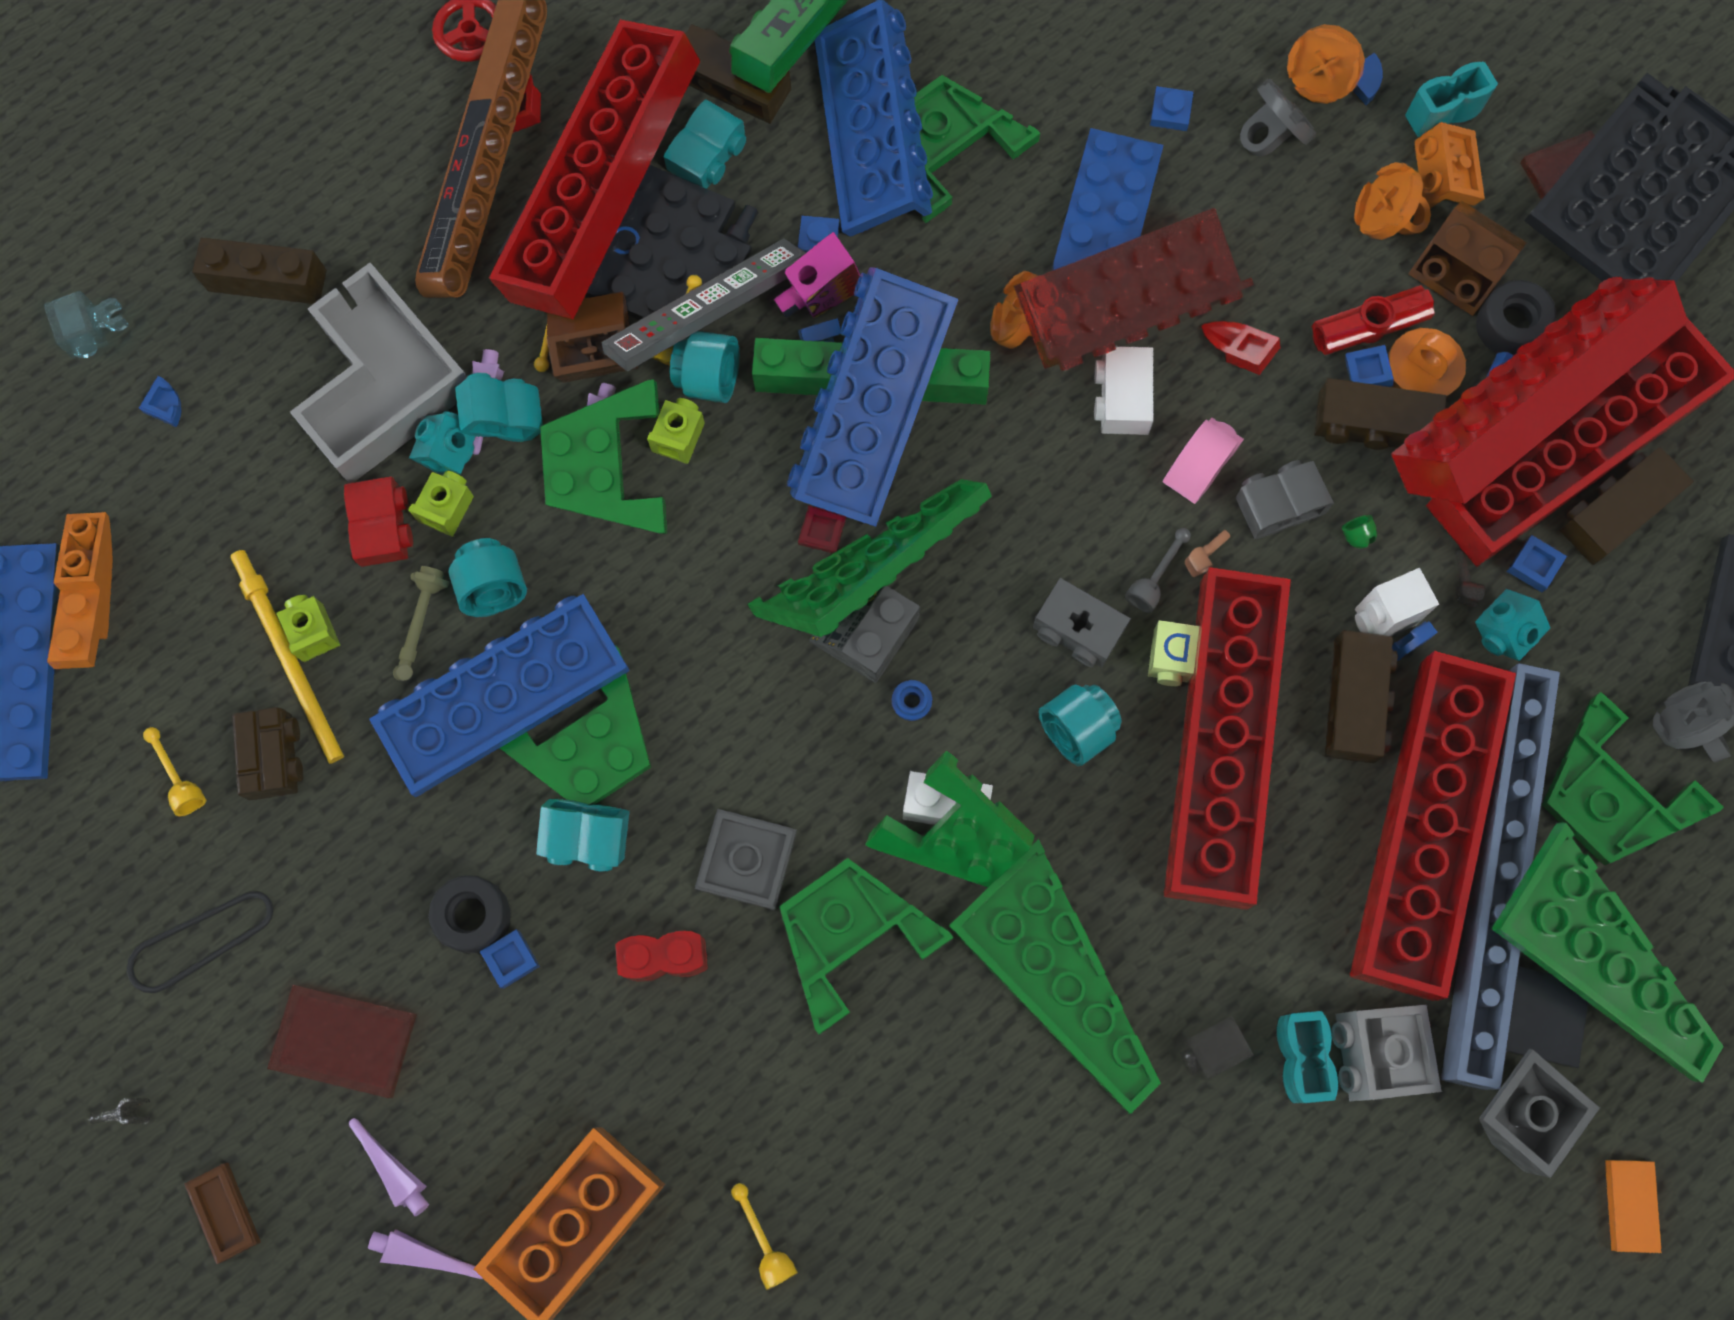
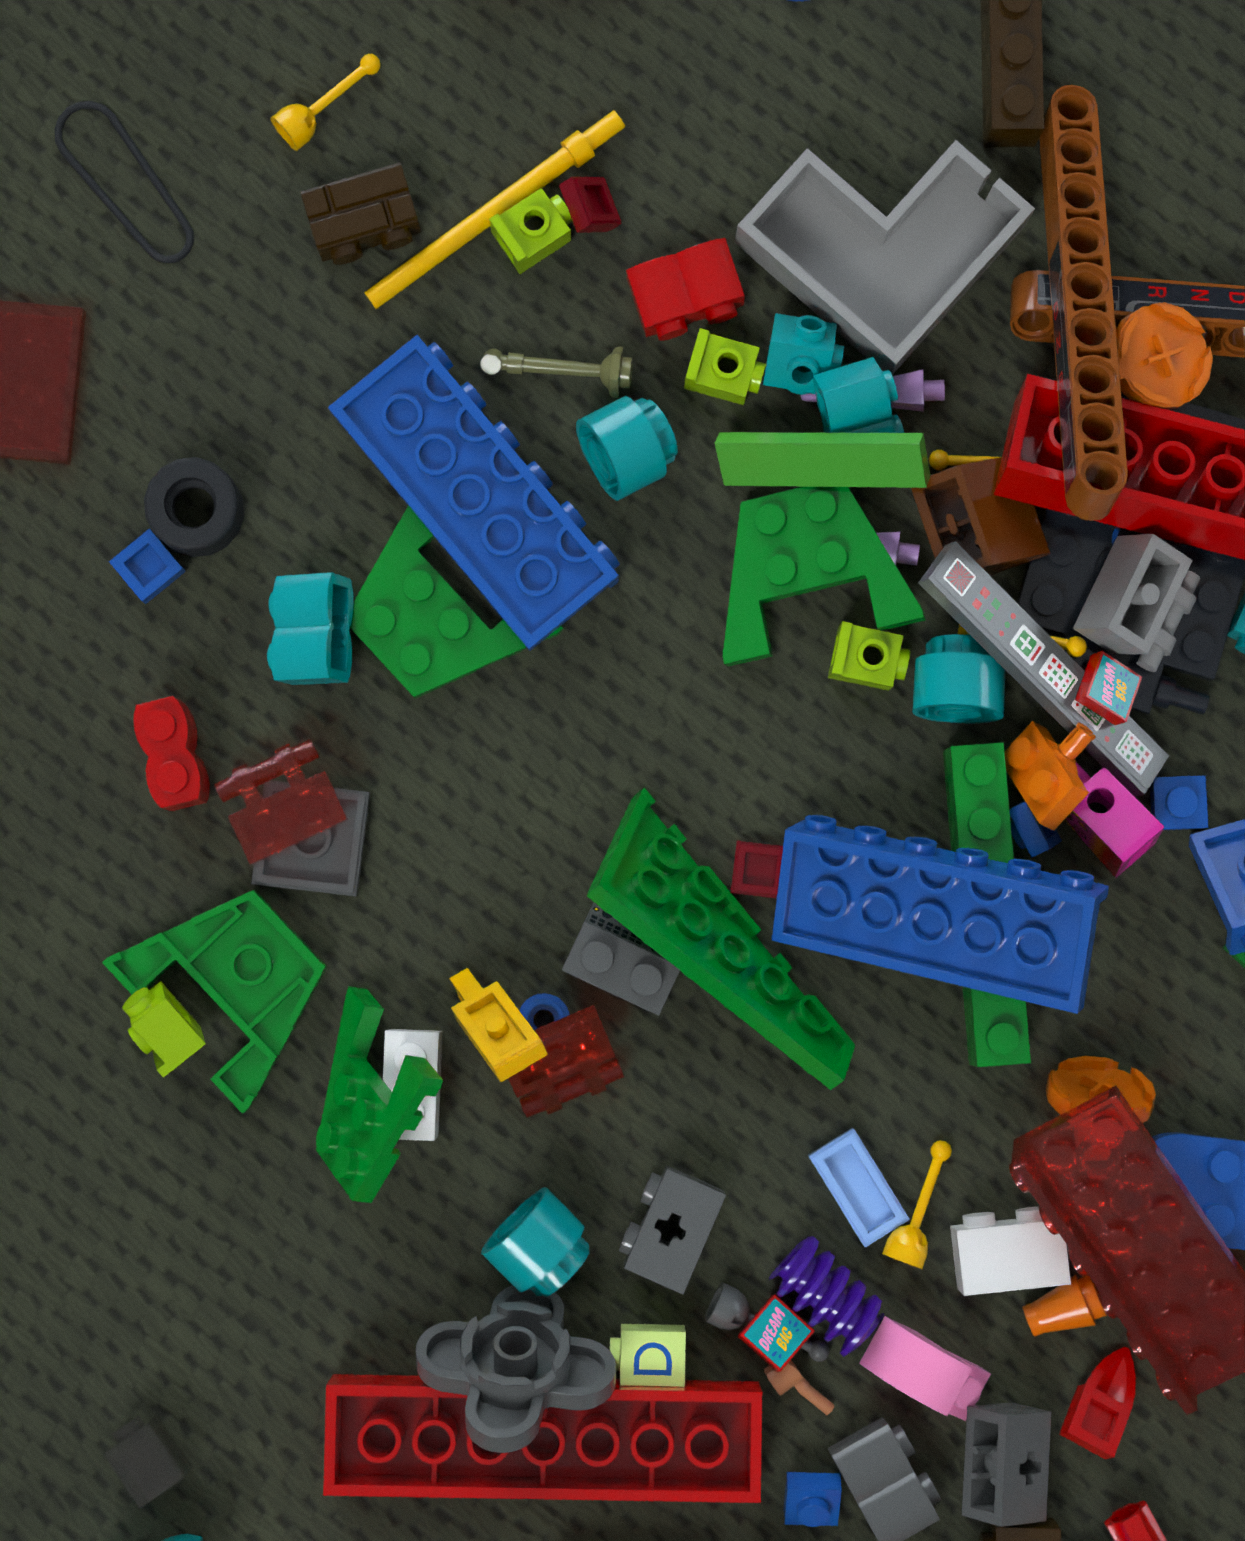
camera: 75 degrees right, 10 degrees up
(297, 581) = (590, 204): none -> dark red tile
(448, 234) = (1082, 268): none -> dark orange beam
(495, 192) = (1162, 356): none -> orange tile
(524, 434) = (823, 459): none -> bright green tile
(666, 233) = (1139, 599): none -> light grey brick
(726, 871) = (288, 816): none -> clear red plate
(728, 263) = (1108, 688): none -> tile
(782, 311) = (1048, 771): none -> orange plate
(877, 990) = (162, 1026): none -> lime brick
(910, 726) = (495, 1026): none -> yellow hinge
(945, 687) = (572, 1046): none -> clear red plate
(1044, 957) = (237, 1228): green wing -> none
(1066, 491) = (858, 1187): none -> light blue tile
(1110, 461) = (909, 1242): none -> yellow hinge
(1140, 517) = (828, 1294): none -> dark purple piece
(1166, 559) = (776, 1333): none -> tile
(1169, 358) = (1065, 1307): none -> orange cone
(1172, 743) = (515, 1368): none -> dark grey plant
(1277, 411) = (1006, 1464): none -> dark grey brick
(1290, 551) = (812, 1499): none -> blue plate

